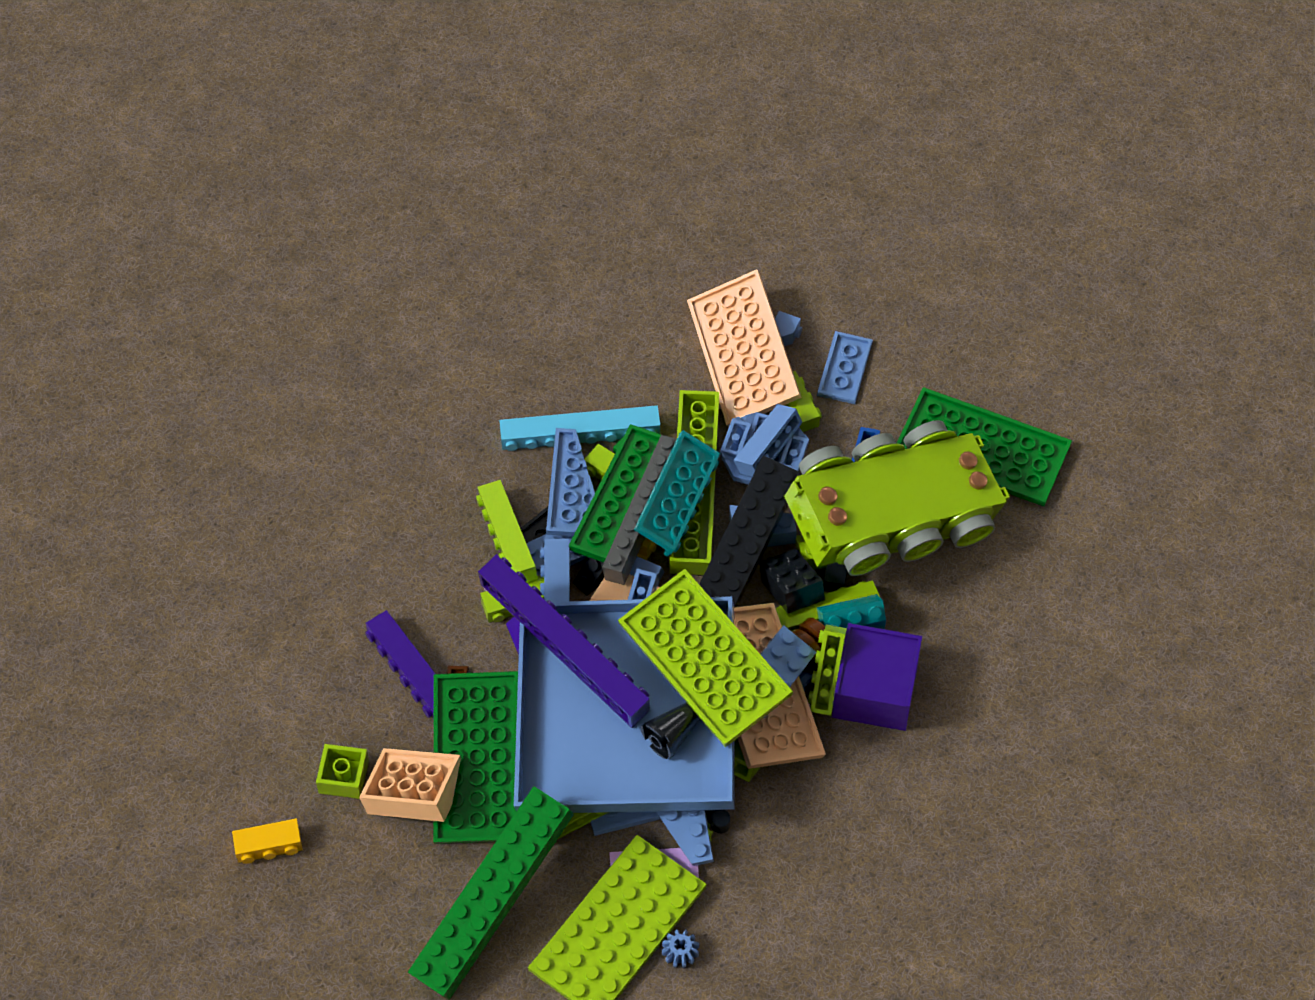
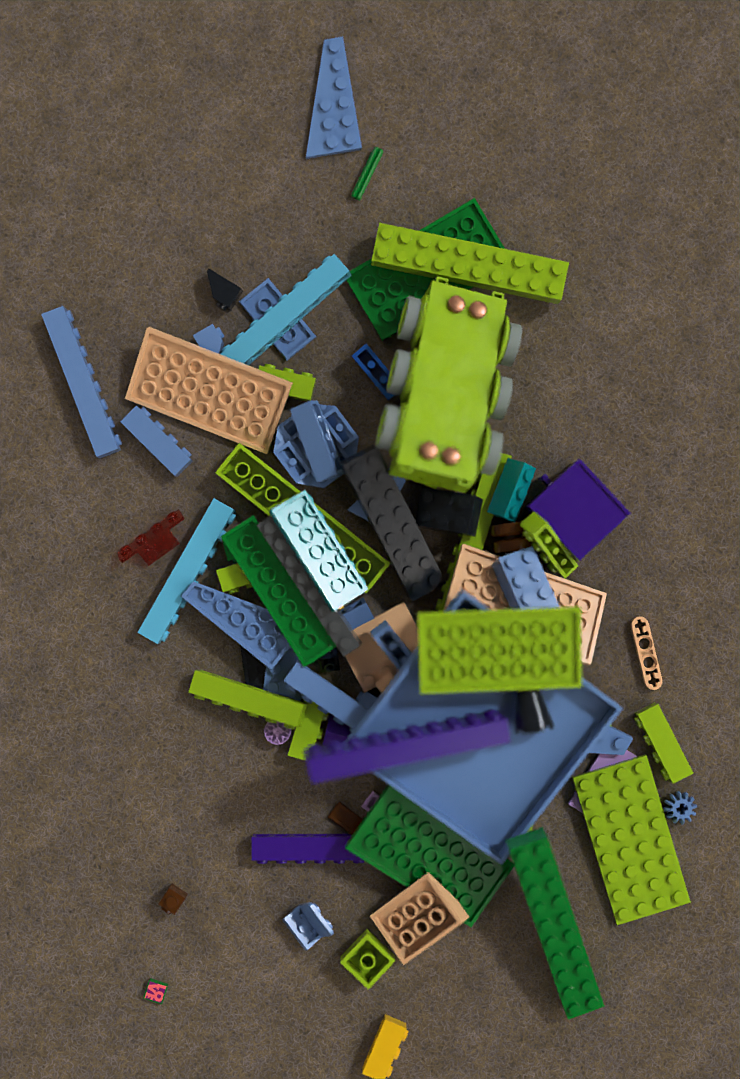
camera: 55 degrees left, 30 degrees up
(190, 629) = (156, 991): none -> tile
(284, 588) = (173, 899): none -> reddish brown brick
(338, 705) = (307, 924): none -> medium blue bracket
(584, 393) = (154, 542): none -> clear red bracket
(670, 342) = (156, 441): none -> medium blue brick
(674, 264) = (81, 382): none -> medium blue brick
(729, 894) = (663, 743): none -> lime brick
(797, 827) = (648, 652): none -> light nougat beam
(833, 314) = (223, 291): none -> black slope
(859, 365) = (288, 311): none -> medium azure brick
(1015, 467) = (469, 263): none -> lime brick
(1020, 355) = (367, 173): none -> green axle
(1047, 304) = (334, 114): none -> medium blue wing

